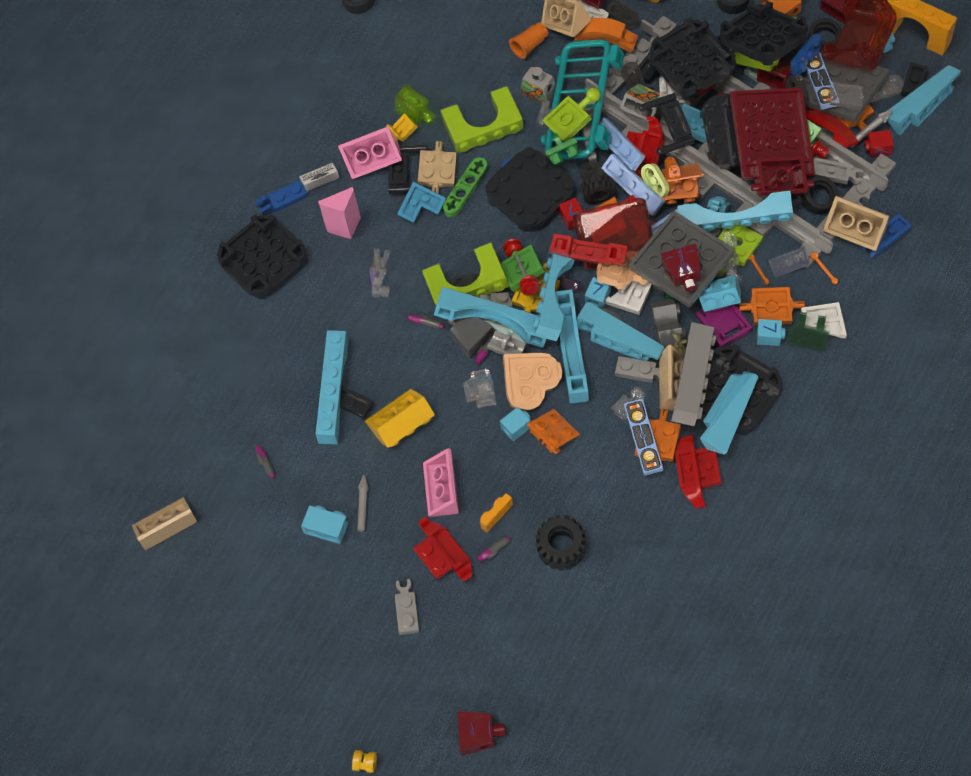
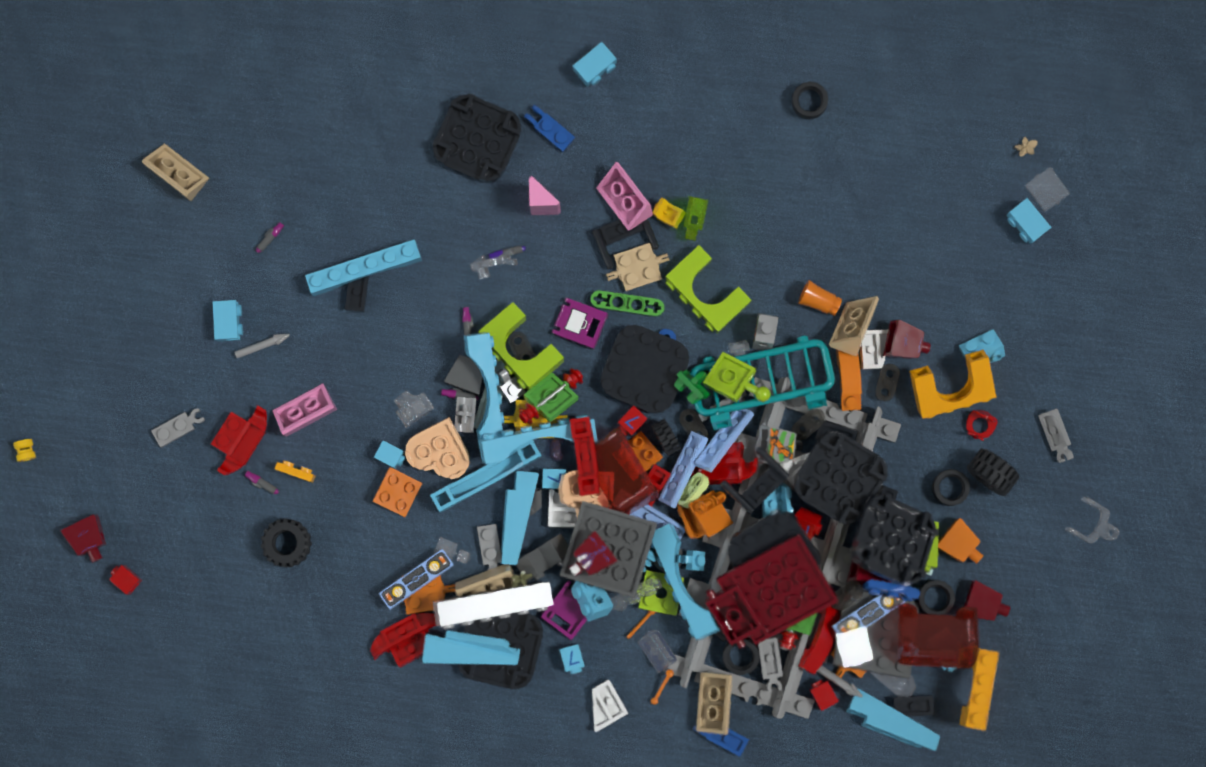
camera: 60 degrees right, 20 degrees up
(244, 141) = (595, 64): none -> medium azure brick
(319, 177) = (586, 153): white slope -> none
(400, 418) = (356, 343): yellow slope -> none
(420, 197) = (595, 266): dark azure plate -> none
(464, 231) = (576, 321): none -> magenta container
(534, 708) = (125, 579): none -> red brick
(771, 304) = (602, 650): orange plate -> none
(809, 337) = (580, 696): clear green plate -> none

